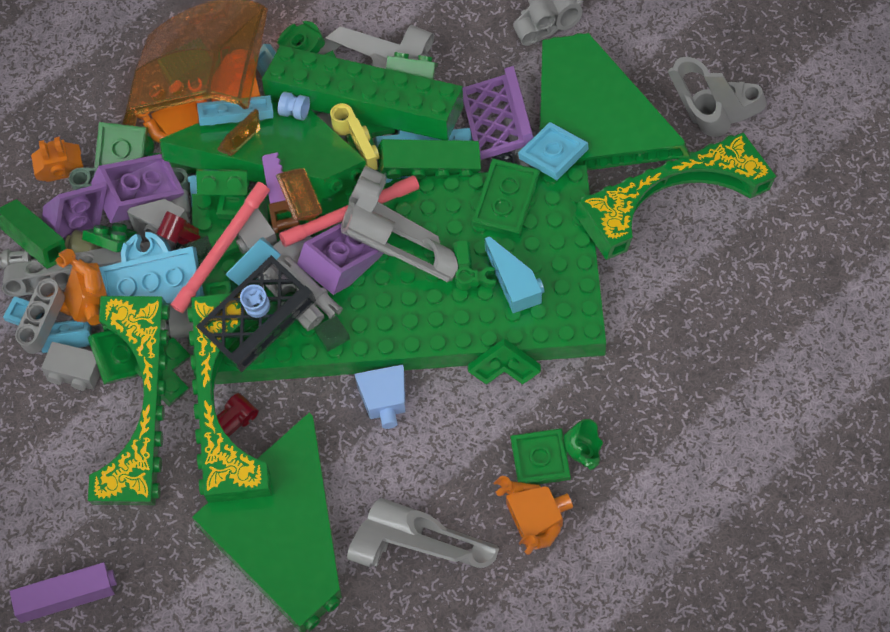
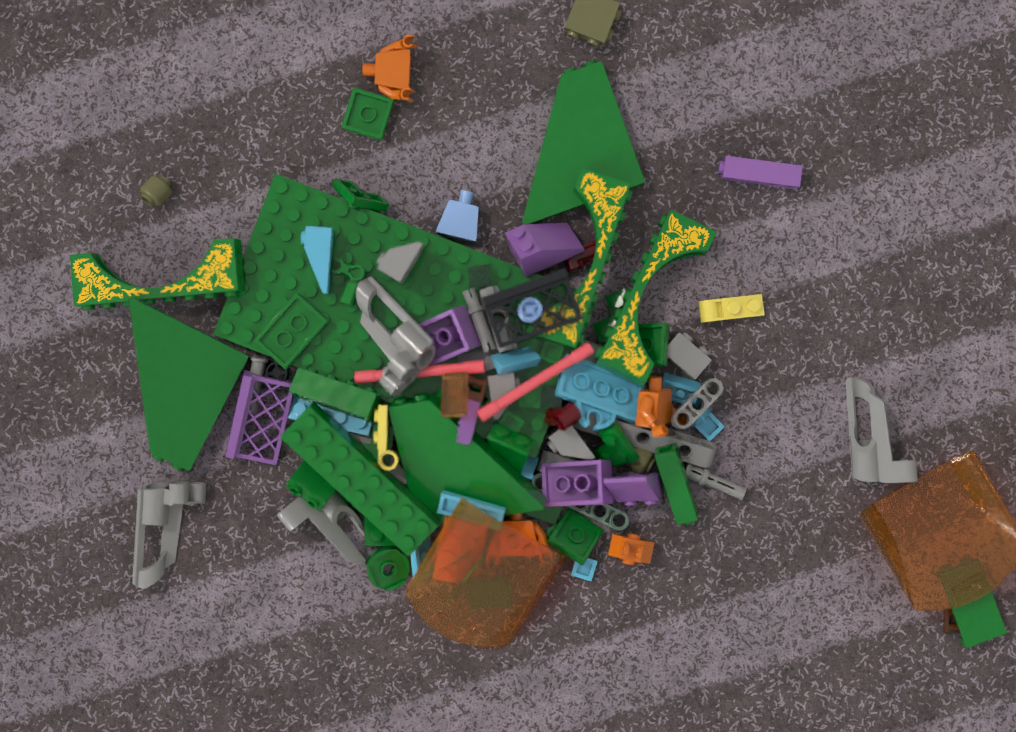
camera: 160 degrees left, 25 degrees up
(41, 435) = (731, 308): none -> light yellow plate
(93, 123) = (584, 571): none -> medium azure plate
(240, 134) = (478, 480): clear orange slope -> none
(277, 401) = (542, 245): none -> medium lavender slope
(293, 105) = (422, 492): light blue wheel -> none
(403, 527) = (500, 104): light grey panel -> none
(423, 301) = (400, 261): none -> light grey slope
(553, 151) = (234, 353): medium azure plate -> none
(584, 443) = (331, 107): green hair -> none
(721, 104) = (76, 339): light grey panel -> none
(725, 279) = (155, 190): none -> olive head

